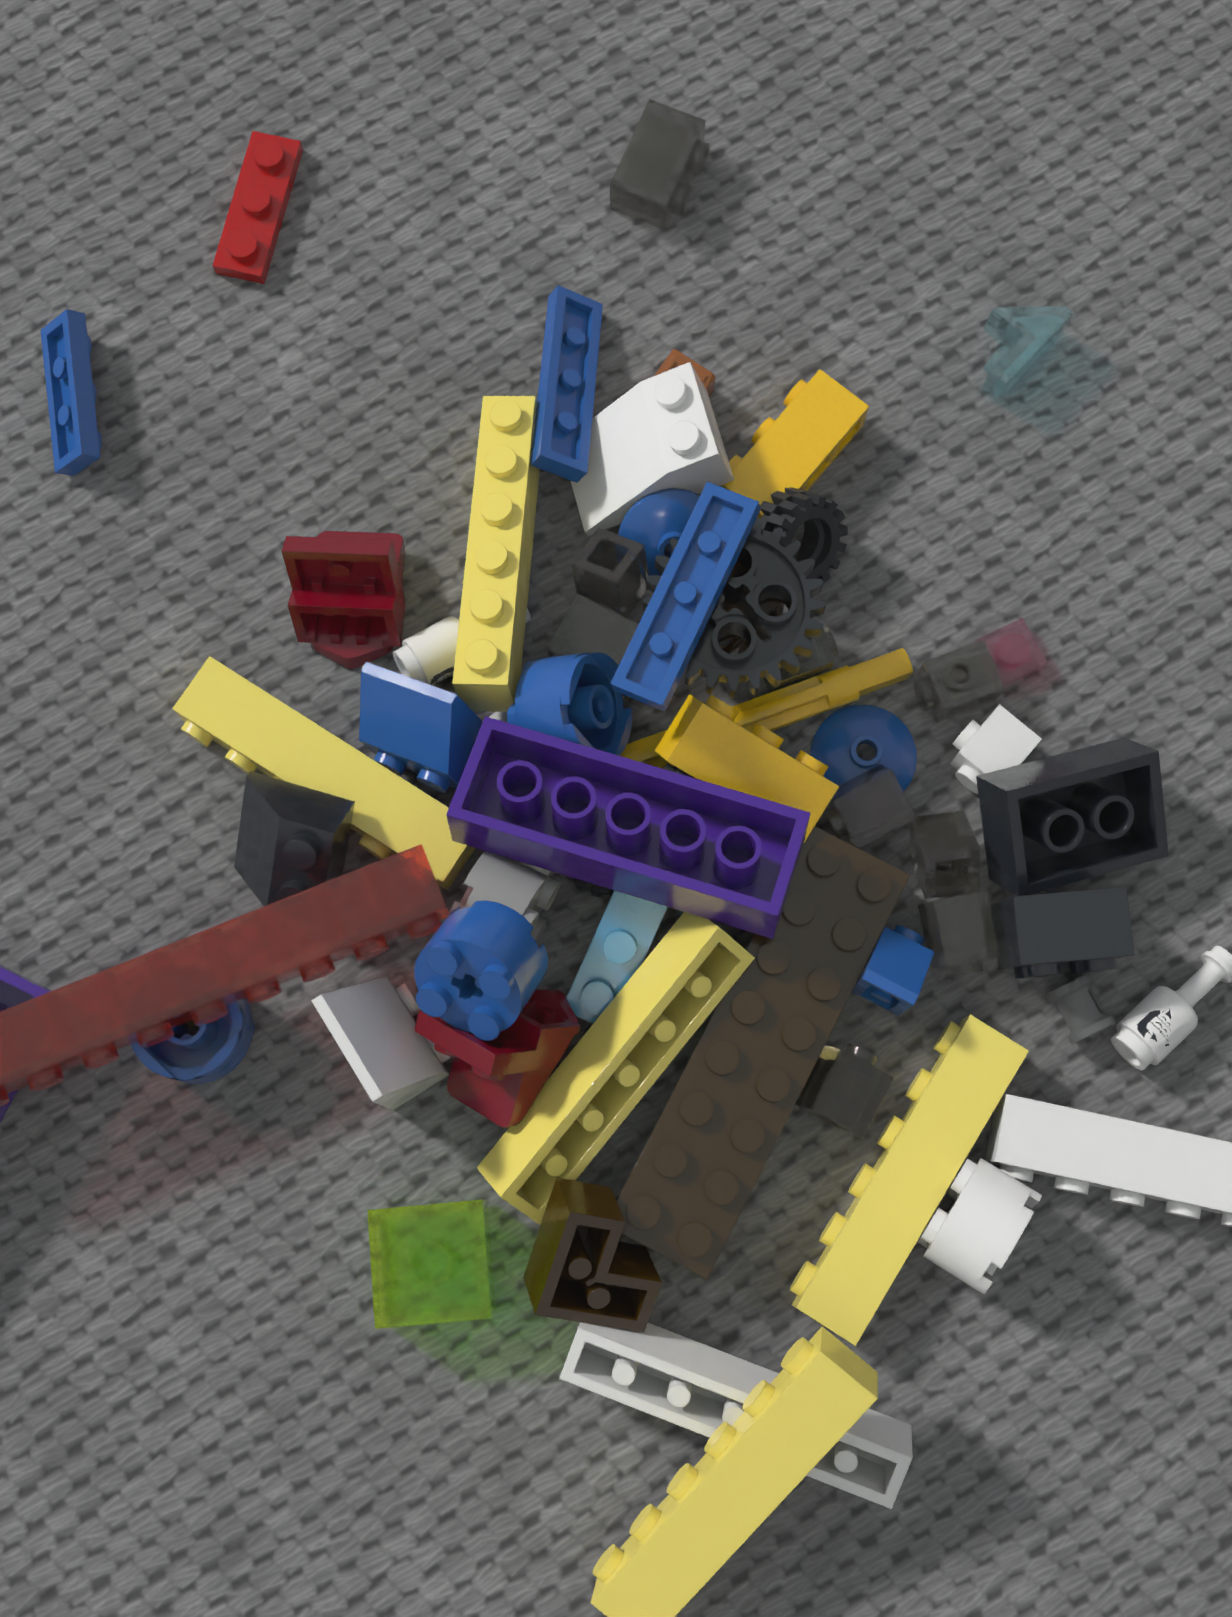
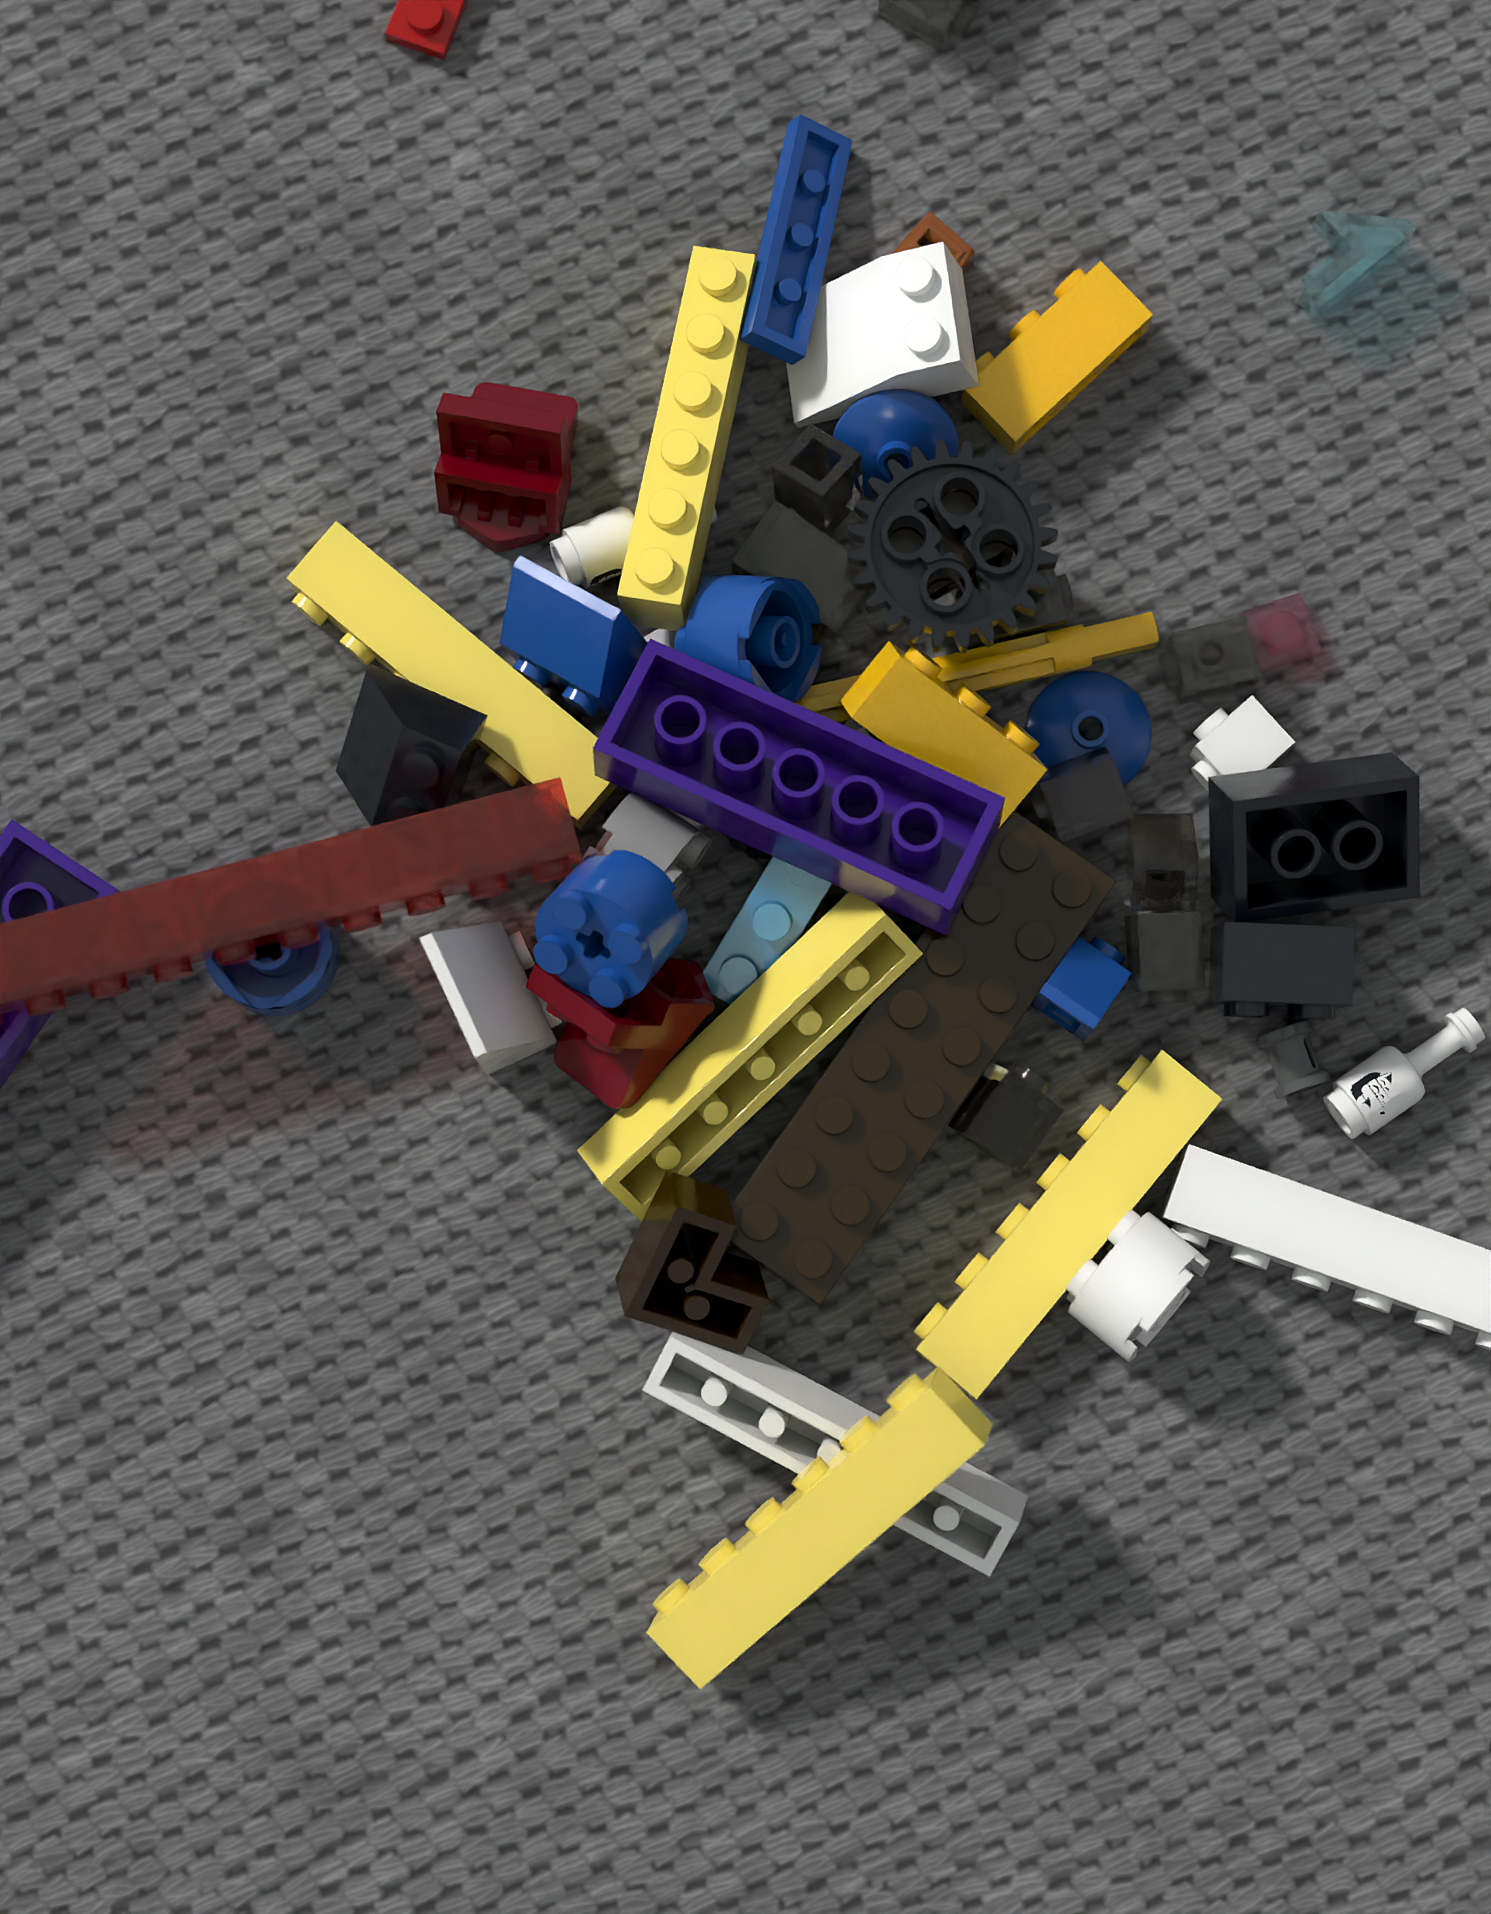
camera: 10 degrees right, 5 degrees up
(70, 393) = (199, 173): blue plate -> none
(431, 1264) = (514, 1247): clear neon green brick -> none
(685, 596) = (896, 532): blue plate -> none
(820, 522) = (1074, 460): black tyre -> none

